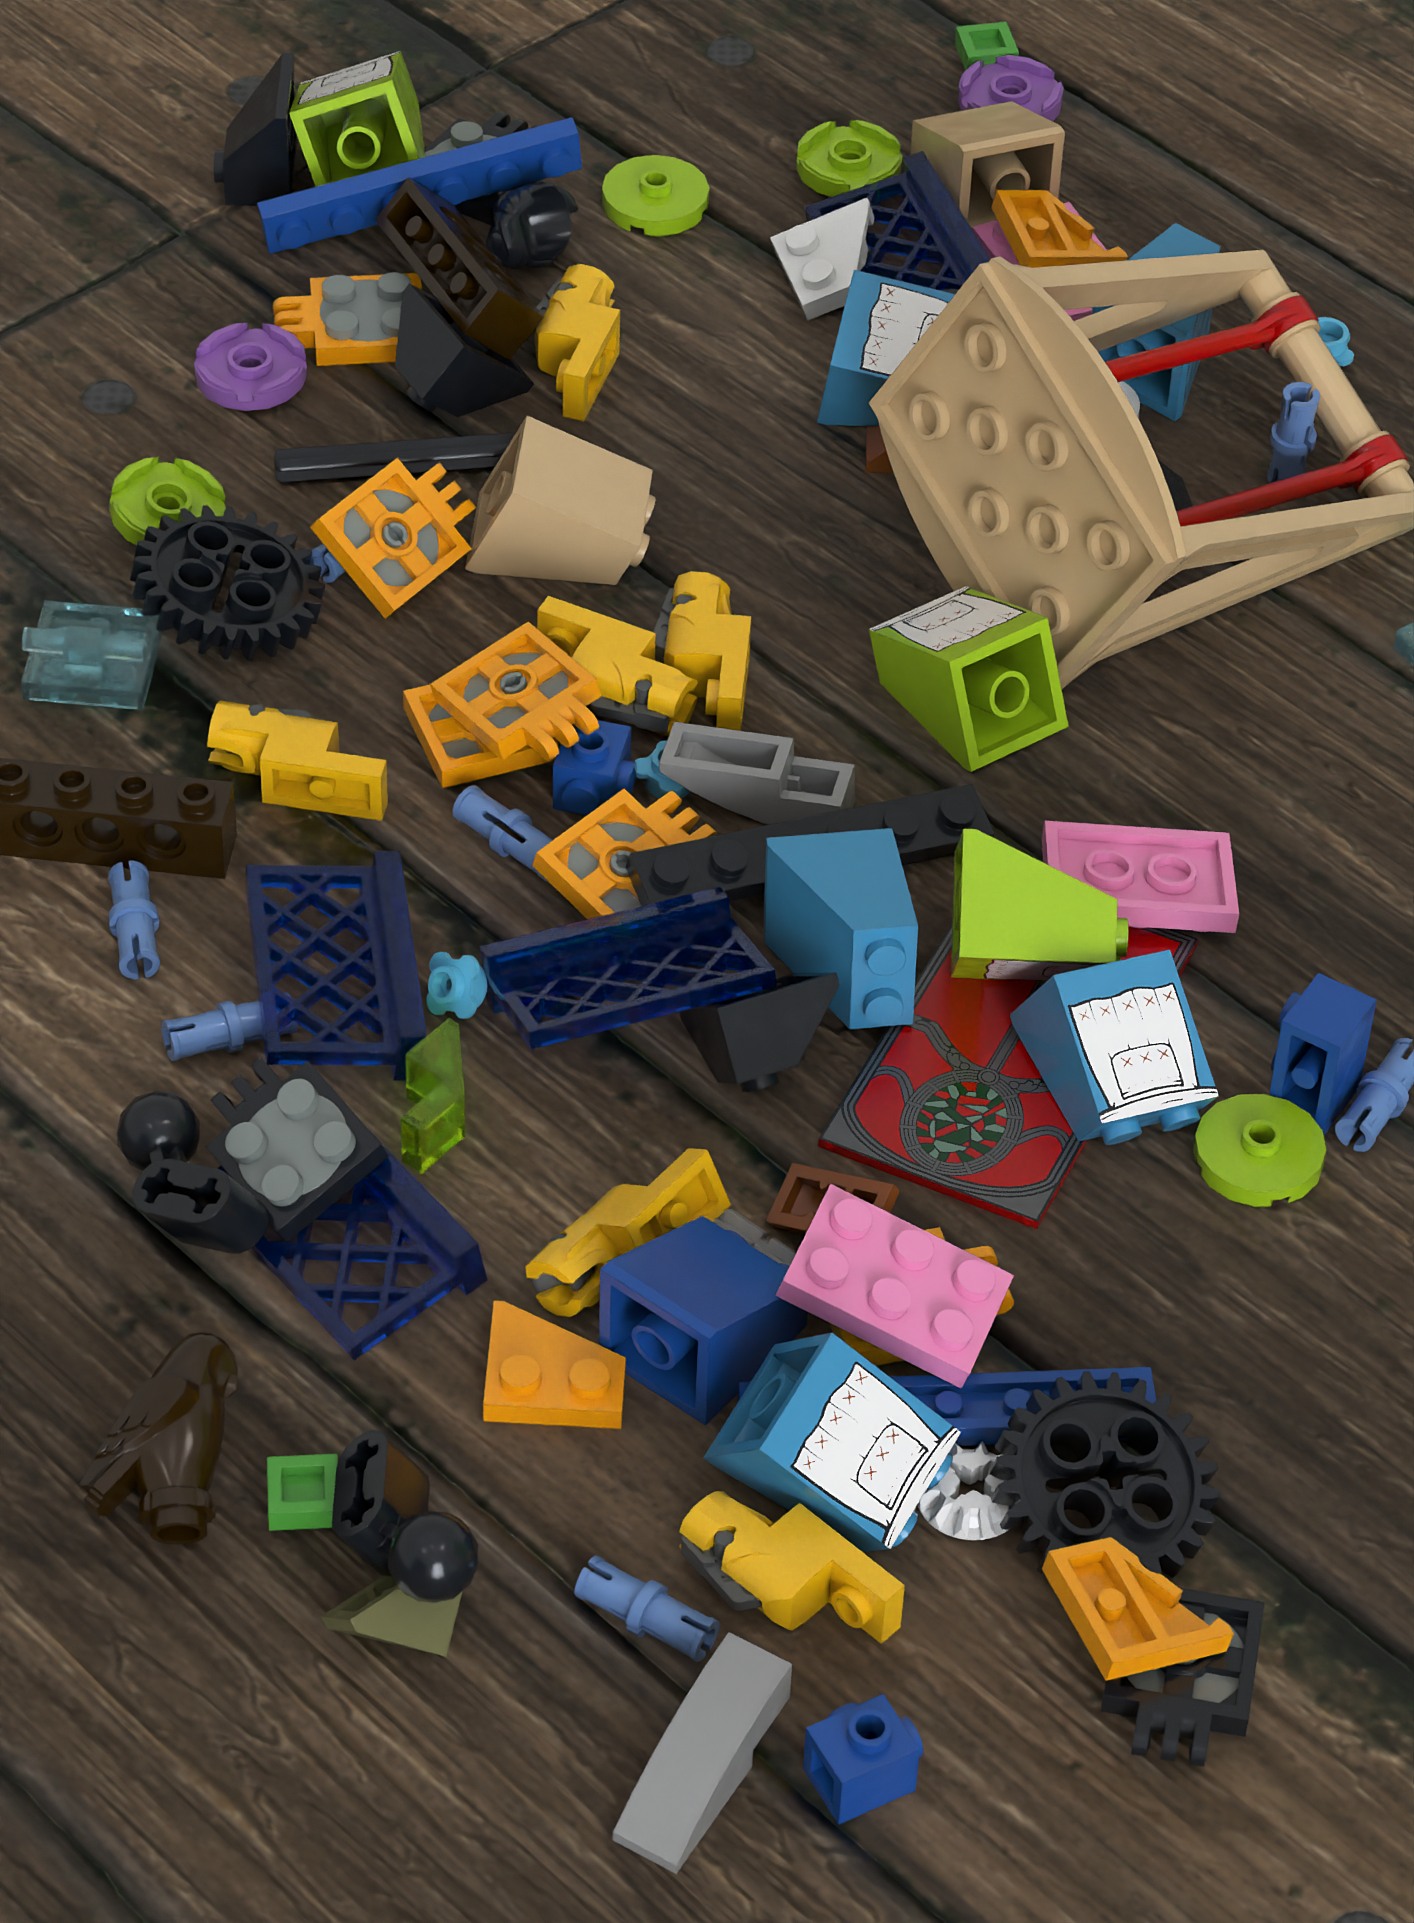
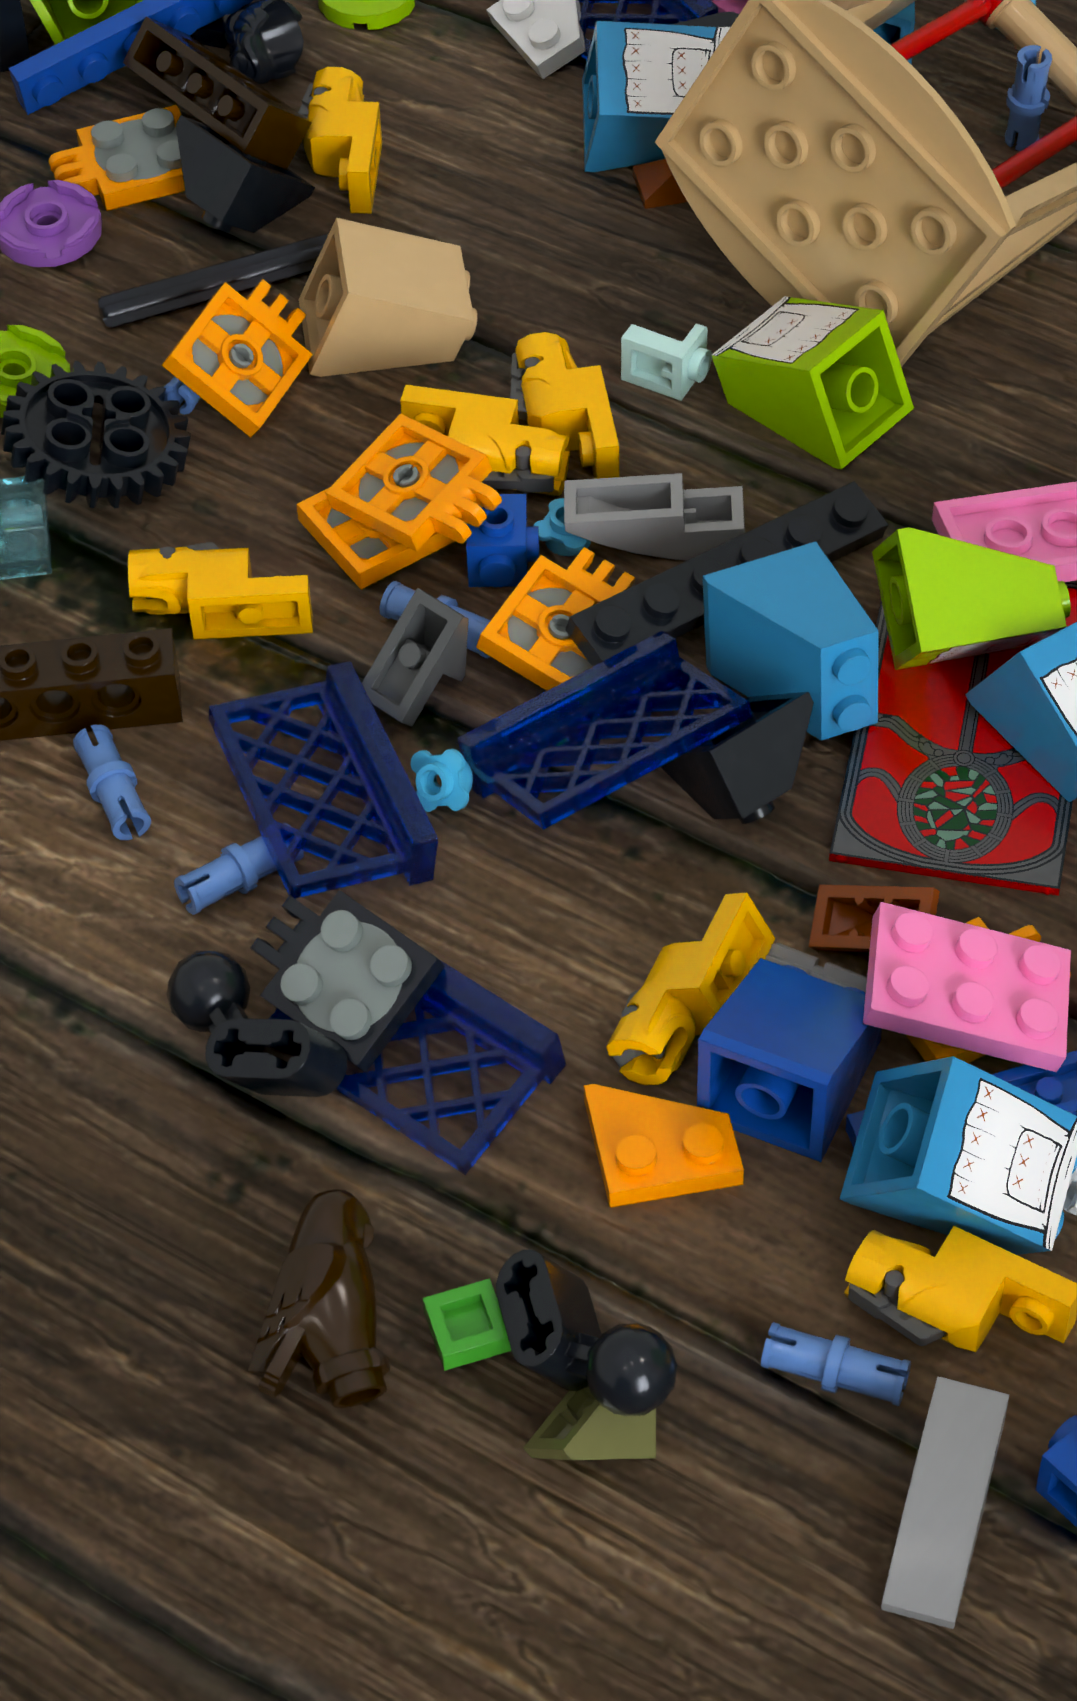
camera: 10 degrees left, 5 degrees up
(438, 1091) = (460, 882): clear neon green slope -> none
(476, 852) = (419, 650): none -> dark grey slope
(823, 628) = (664, 362): none -> light aqua bracket

